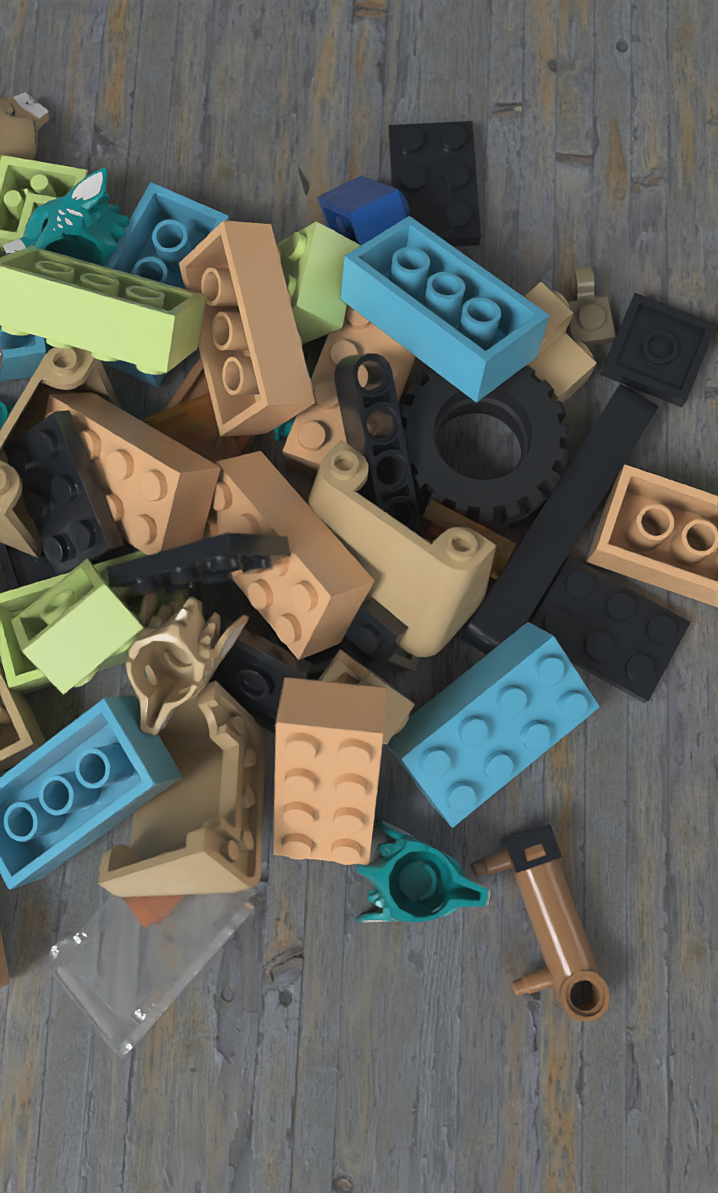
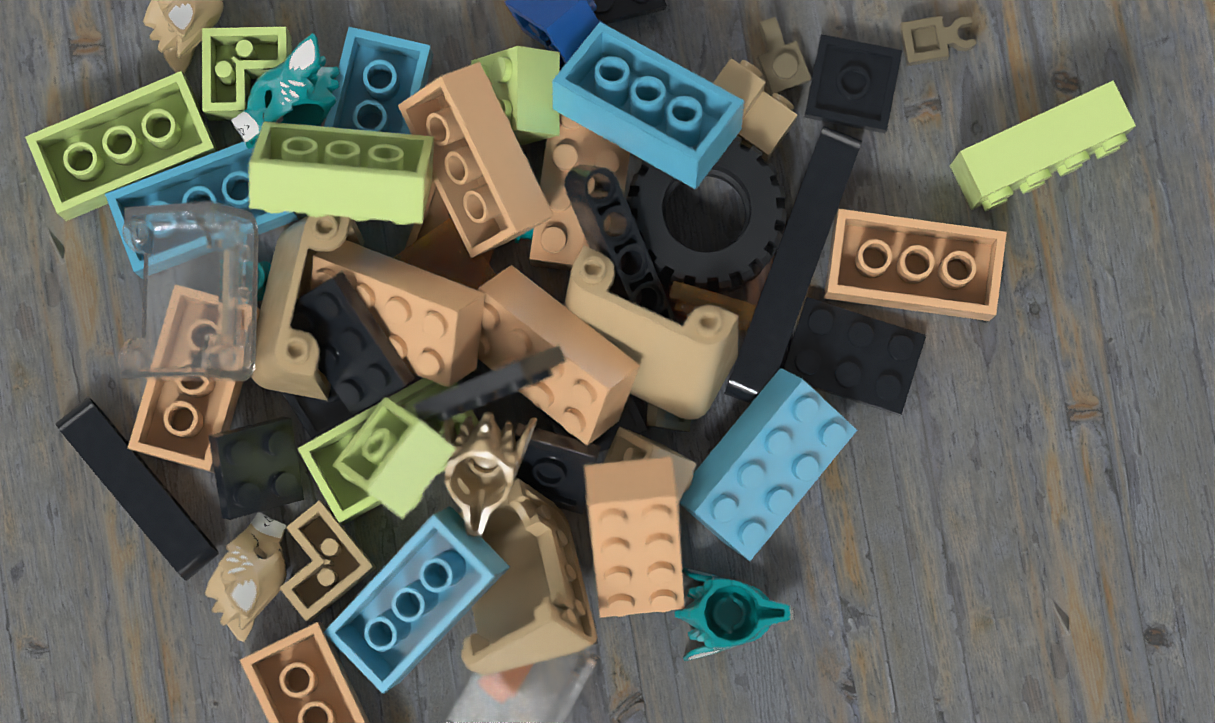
camera: 15 degrees left, 5 degrees up
(376, 631) = (649, 406): black plate -> none
(554, 918) = (852, 619): medium nougat piece -> none

